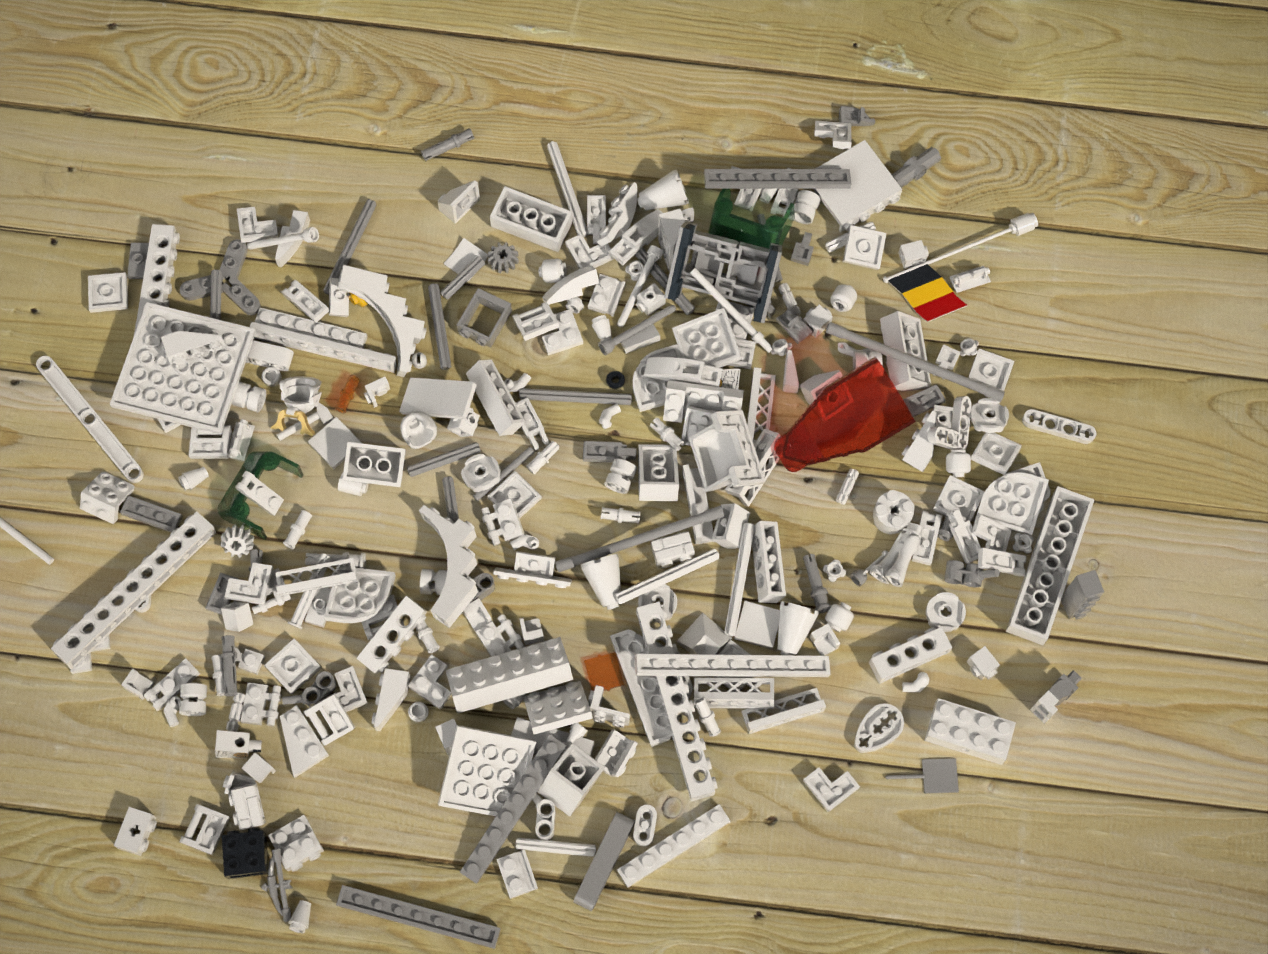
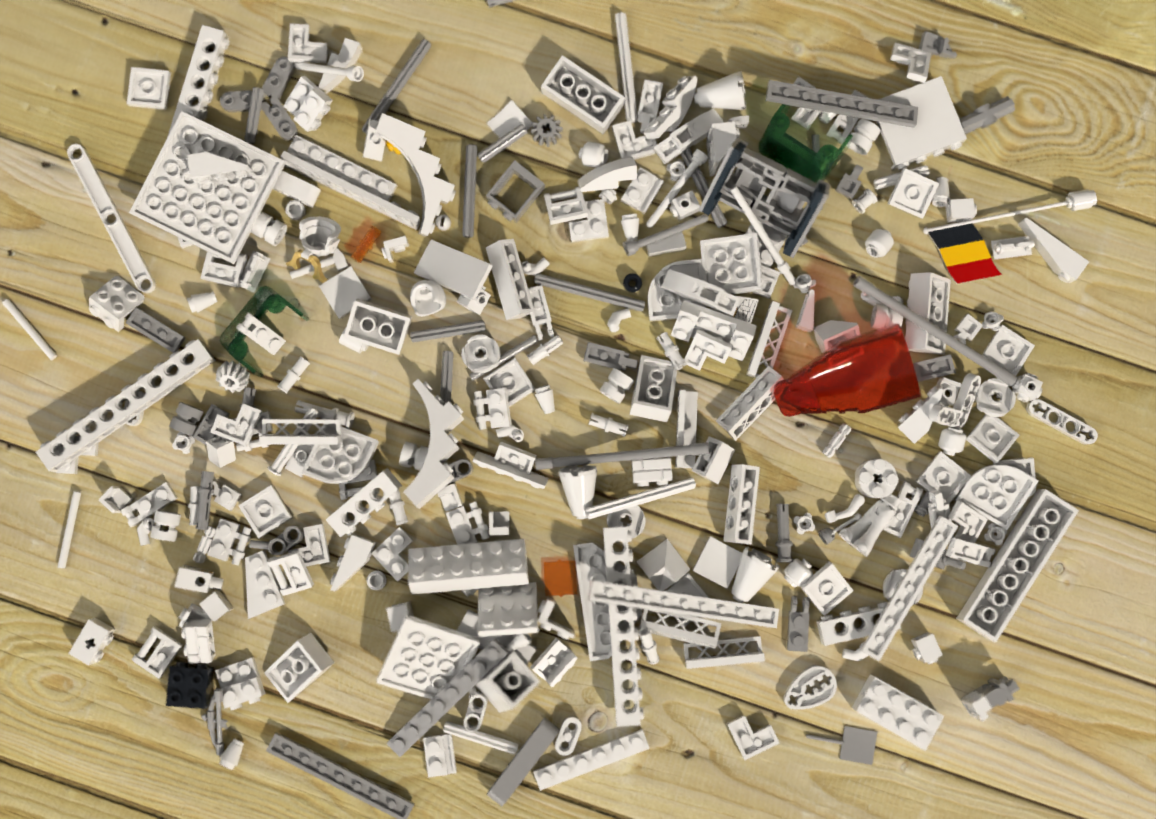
camera: 15 degrees right, 15 degrees up
(91, 750) = (69, 529): none -> white bar
(137, 260) = (182, 58): light grey plate -> none
(193, 612) = (178, 442): none -> white plate
(196, 591) = (186, 419): none -> light grey wheel
(267, 276) = (308, 104): none -> white plate
(305, 301) = (341, 138): white plate -> none
(354, 813) = (299, 667): none -> white slope
(459, 201) = (513, 60): white slope -> none
(553, 502) = (545, 398): none -> white cone
(726, 452) = (726, 388): white windscreen -> none
(739, 579) = (710, 515): white axle -> none
(788, 298) = (824, 234): white axle -> none
(794, 325) = (822, 263): light grey hips -> none
(818, 319) = (847, 261): white brick -> none
(820, 263) = (864, 201): none -> white bush
(824, 640) = (779, 592): white panel -> none
(852, 670) = (798, 626): none -> light grey hinge
(870, 626) = (826, 588): none -> white plate
(880, 539) = (856, 503): none -> white piece
(891, 245) = (941, 194): none -> white cone
(949, 606) = (909, 588): none -> white plate
(1014, 276) = (1058, 256): none -> white slope
(1017, 400) = (1021, 388): none -> white brick
(1082, 595) = (1043, 610): light grey brick -> none

